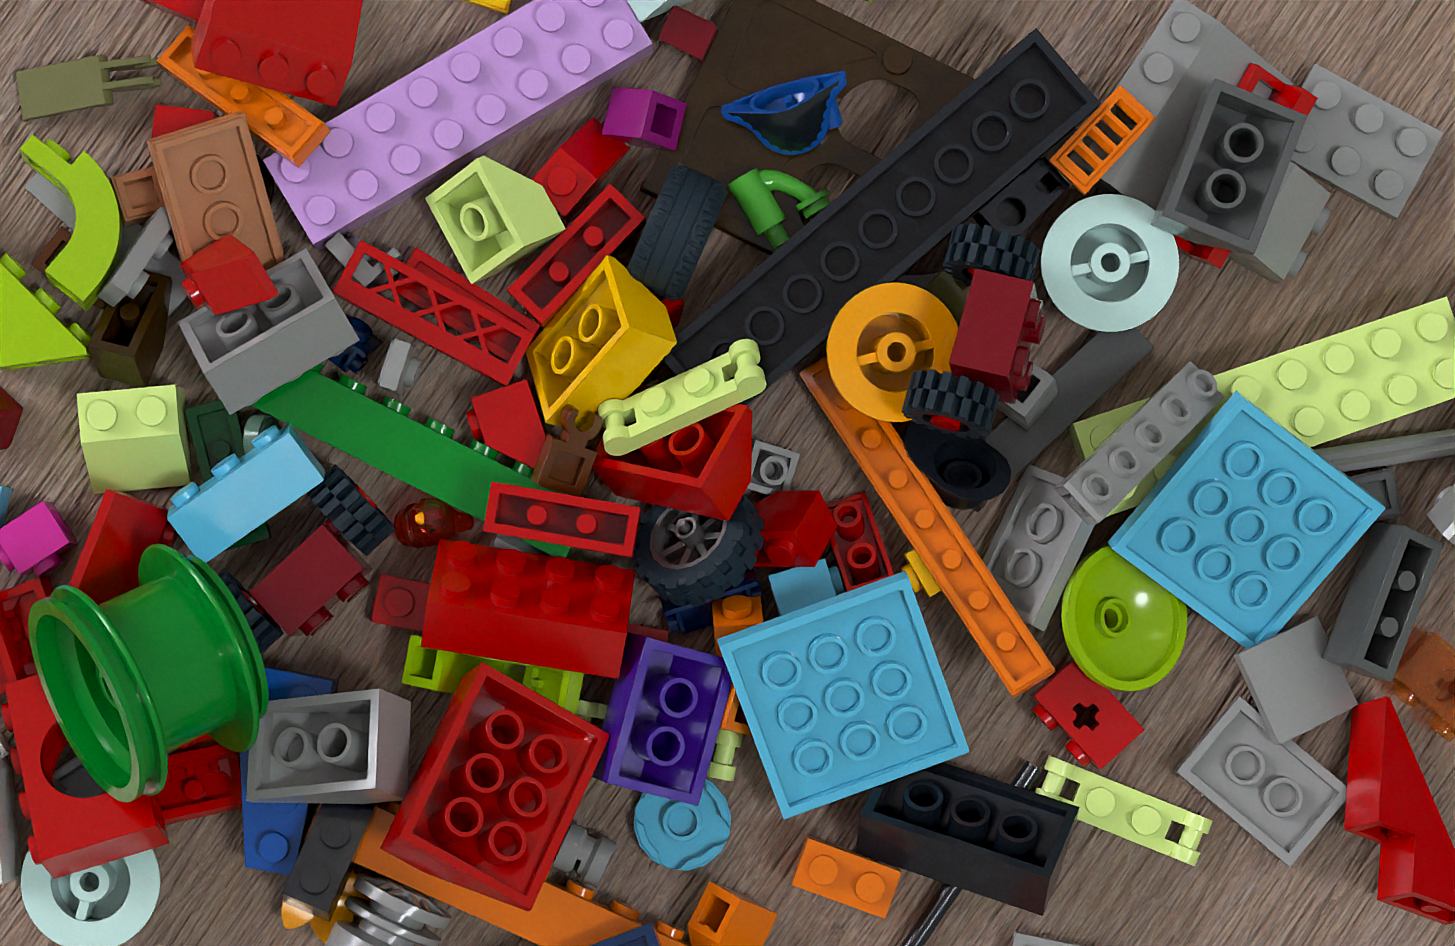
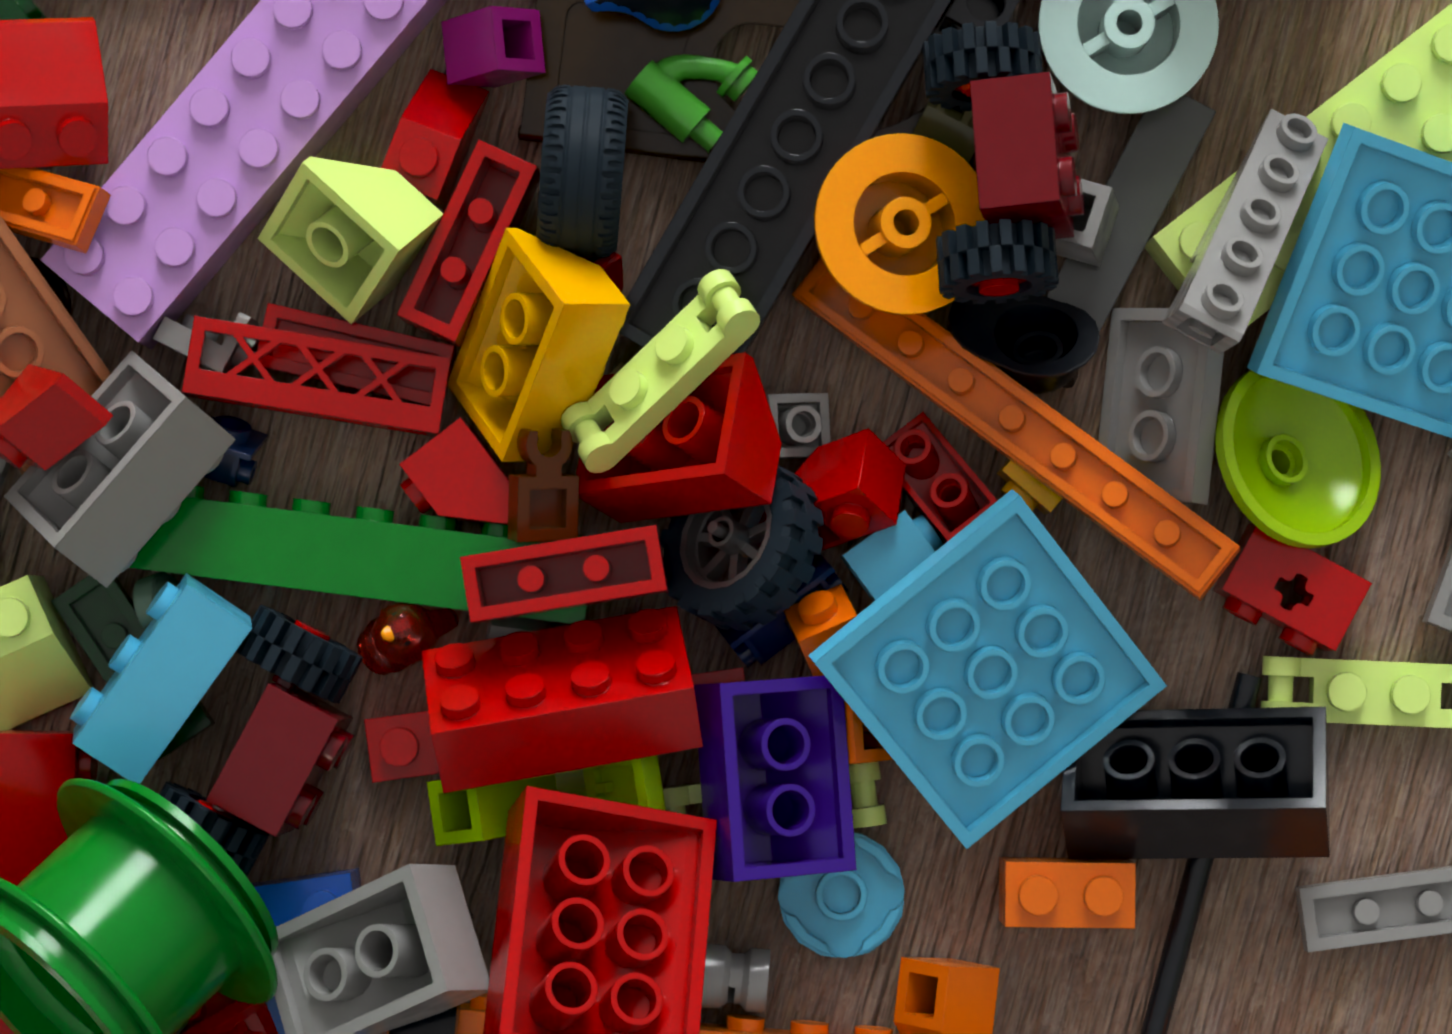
camera: 15 degrees left, 0 degrees up
(400, 367) = (298, 457): light grey plate -> none

